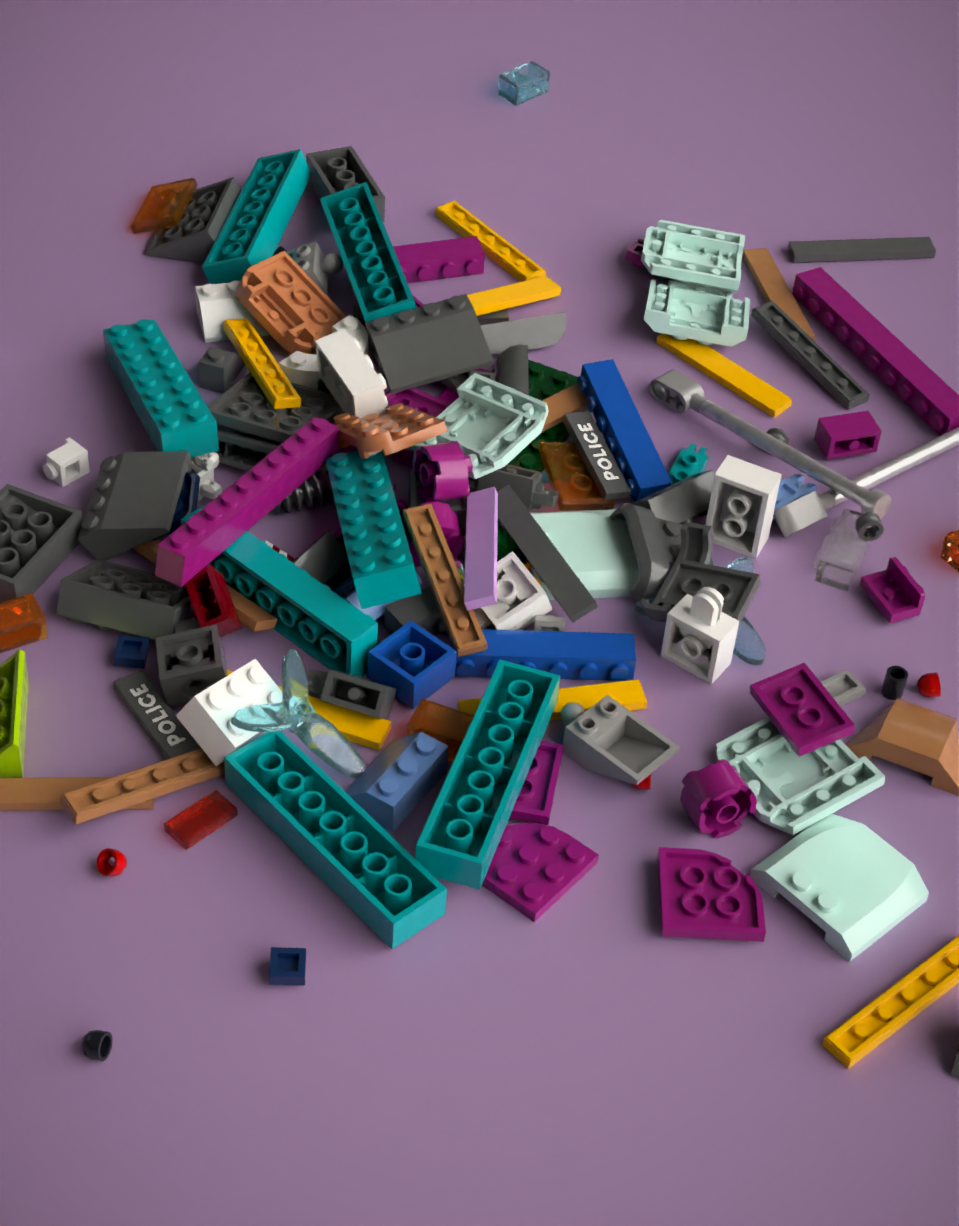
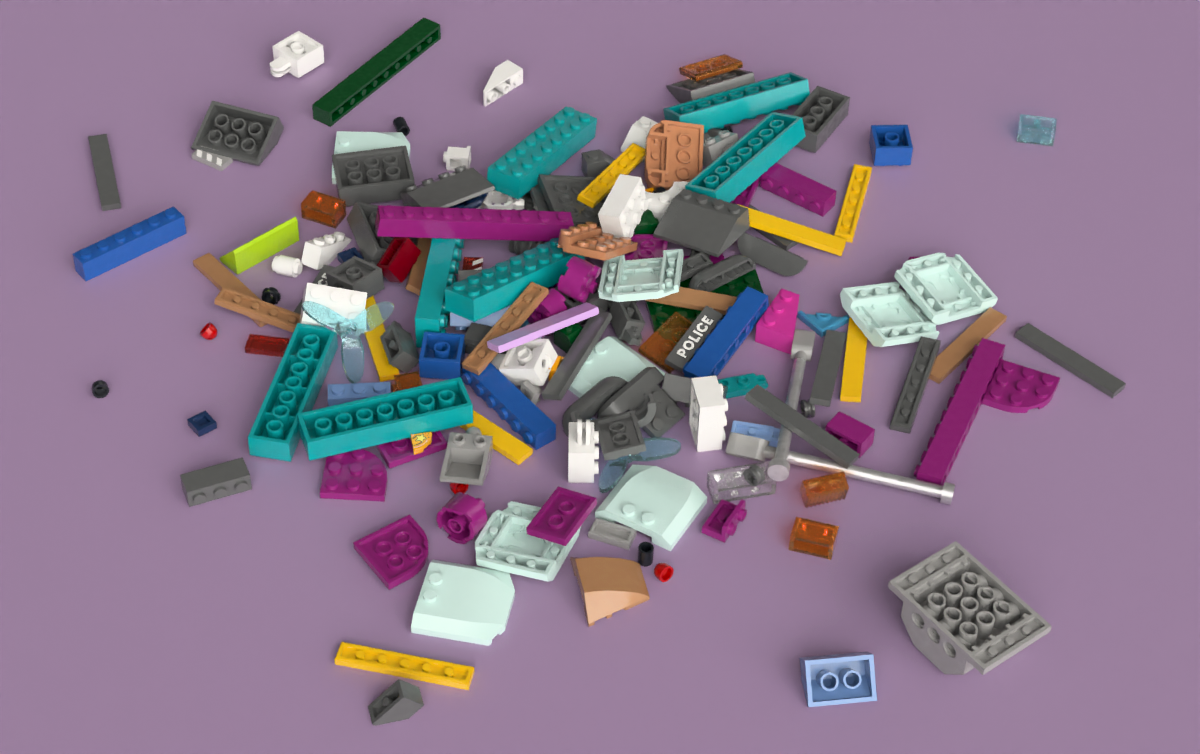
camera: 55 degrees right, 0 degrees up
(76, 716) = (287, 266): none -> white brick
(89, 665) = (323, 249): none -> white slope
(114, 763) = (268, 298): none -> black plate
(421, 1012) = (216, 482): none -> dark grey brick
(444, 168) = (890, 145): none -> blue brick
(547, 765) = (420, 441): none -> light orange tile
(621, 586) = (593, 400): none -> dark grey brick
(647, 362) = (822, 322): none -> dark azure tile
(647, 389) = (778, 322): none -> dark pink wedge
(737, 394) = (828, 368): none -> dark grey tile
(817, 628) = (653, 504): none -> light aqua wedge
(825, 452) = (802, 426): none -> dark grey tile
(879, 294) = (1019, 388): none -> magenta plate
(917, 496) = (824, 489): none -> clear orange brick

